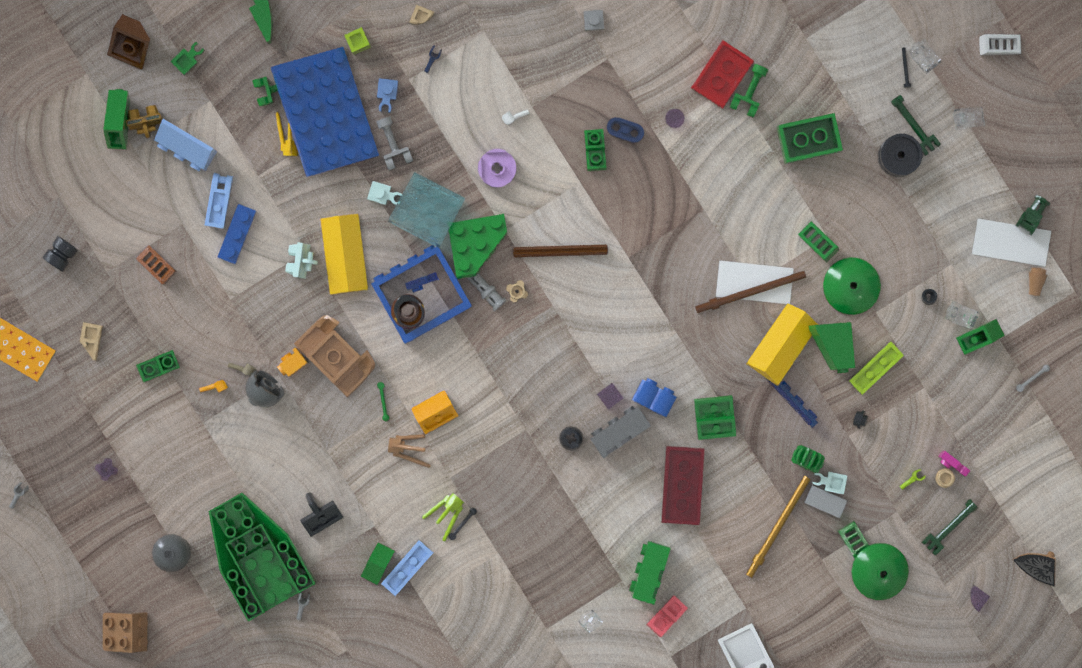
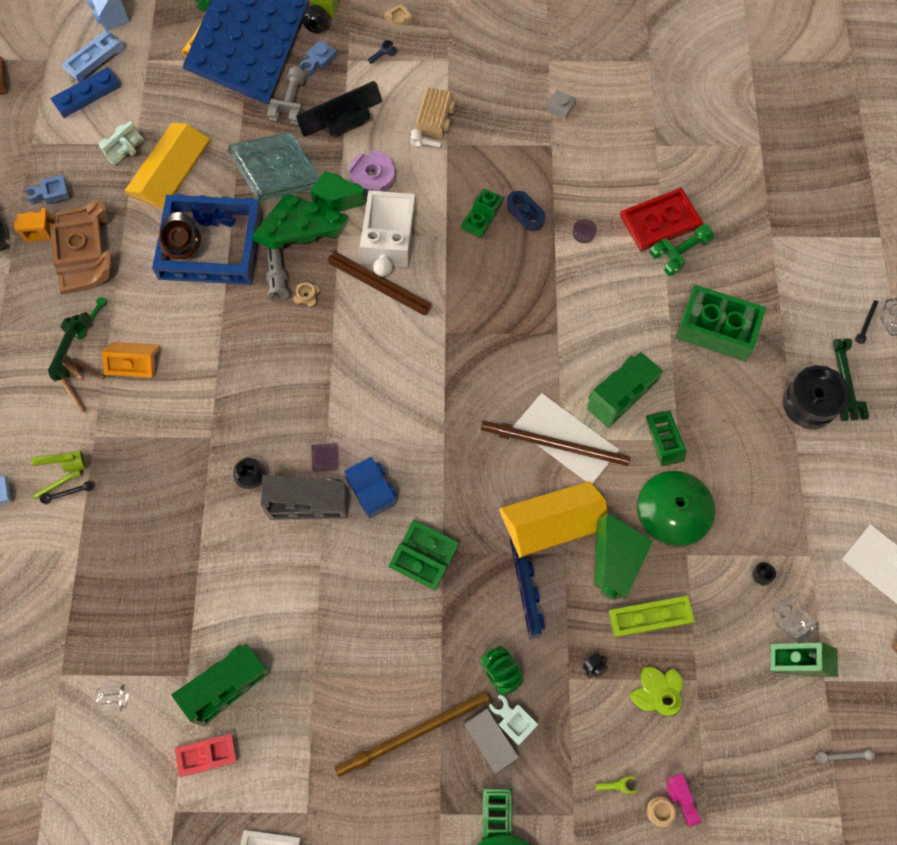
camera: 30 degrees right, 20 degrees down
(280, 327) = (51, 190): none -> medium blue plate
(362, 62) = (315, 18): none -> black piece
(380, 417) = (70, 326): none -> dark green hinge
(381, 193) = (243, 131): light aqua plate -> none
(442, 134) = (340, 112): none -> black bracket
(484, 203) = (336, 193): none -> green slope
(509, 90) = (435, 113): none -> tan brick
(540, 206) = (387, 231): none -> white slope
(682, 485) = (333, 607): dark red plate -> none
(773, 226) = (623, 389): none -> green wedge
(903, 407) = (657, 687): none -> lime plate

